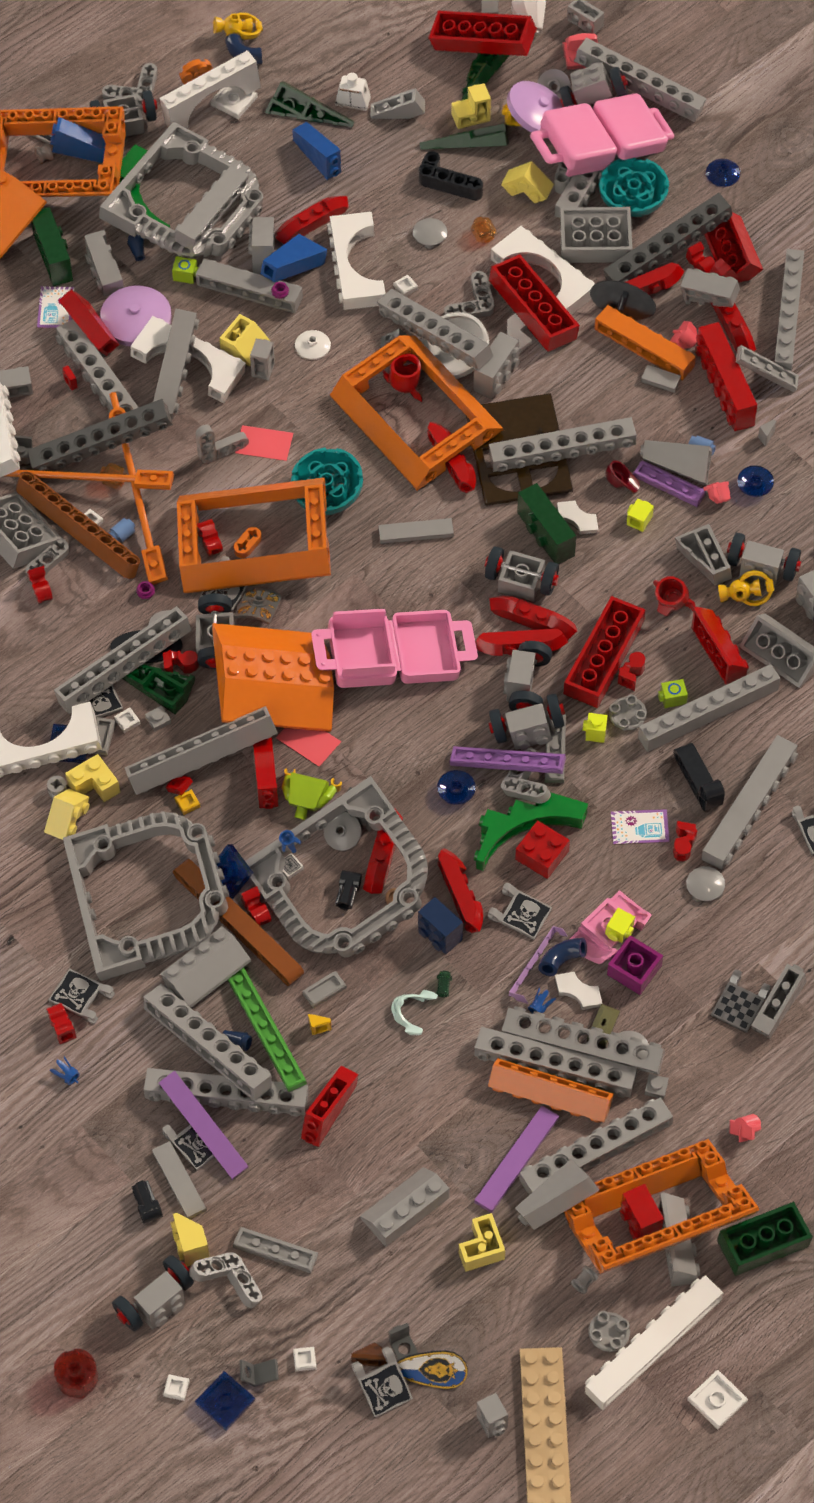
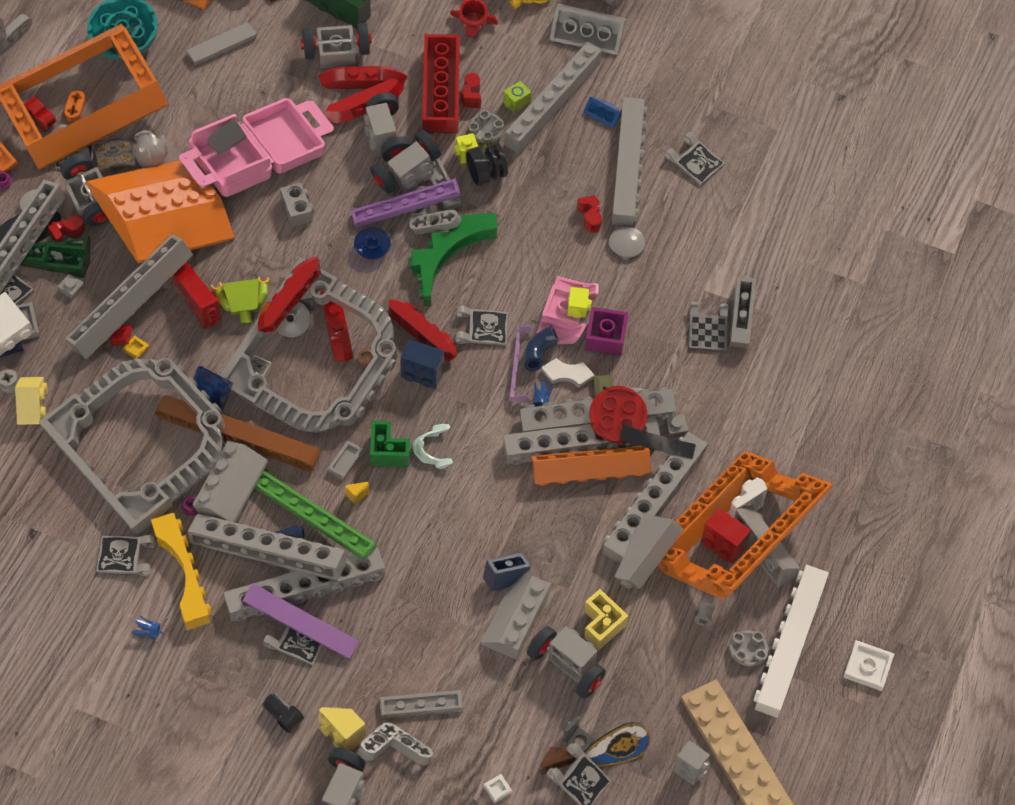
camera: 30 degrees left, 0 degrees up
(60, 1021) = (115, 582): red leg -> none
(93, 775) = (40, 356): light yellow brick -> none
(115, 1068) = (192, 606): none -> yellow arch
(127, 720) = (43, 298): white tile -> none
(156, 972) = (185, 506): none -> magenta plate
(179, 1180) = (301, 680): light grey tile -> none
(256, 909) = (242, 412): red leg -> none
(266, 443) = (48, 17): coral sticker -> none
(287, 839) = (253, 340): blue piece -> none
(292, 613) = (149, 149): none -> light grey hair
(309, 743) = (221, 256): coral sticker -> none
(328, 1106) = (404, 558): red slope -> none
(339, 811) = (294, 288): none -> red brick
(349, 885) = (321, 363): black piece -> none
(363, 992) = (387, 450): none -> green brick
(365, 629) = (226, 137): none -> dark grey slope
(403, 720) = (295, 200): none -> light grey brick
(415, 1158) = (505, 571): none -> dark blue slope
(434, 1265) = (570, 655): none -> brick
(444, 979) = (449, 413): clear green pin -> none
(516, 1159) = (591, 536): medium lavender tile -> none
(542, 849) = (475, 266): red brick -> none
(598, 1052) = (616, 408): none -> red tile
(605, 750) = (486, 163): none -> black wheel
(622, 1094) = (657, 442): none -> black sticker
(640, 826) = (545, 217): sticker -> none
(688, 1186) = (751, 496): none -> white plate
(707, 791) = (586, 165): black beam -> none
(718, 645) = (534, 44): red slope -> none
(745, 1127) = (770, 428): coral piece -> none
(752, 740) = (602, 111): none -> blue slope
(764, 1238) = (836, 513): dark green brick -> none

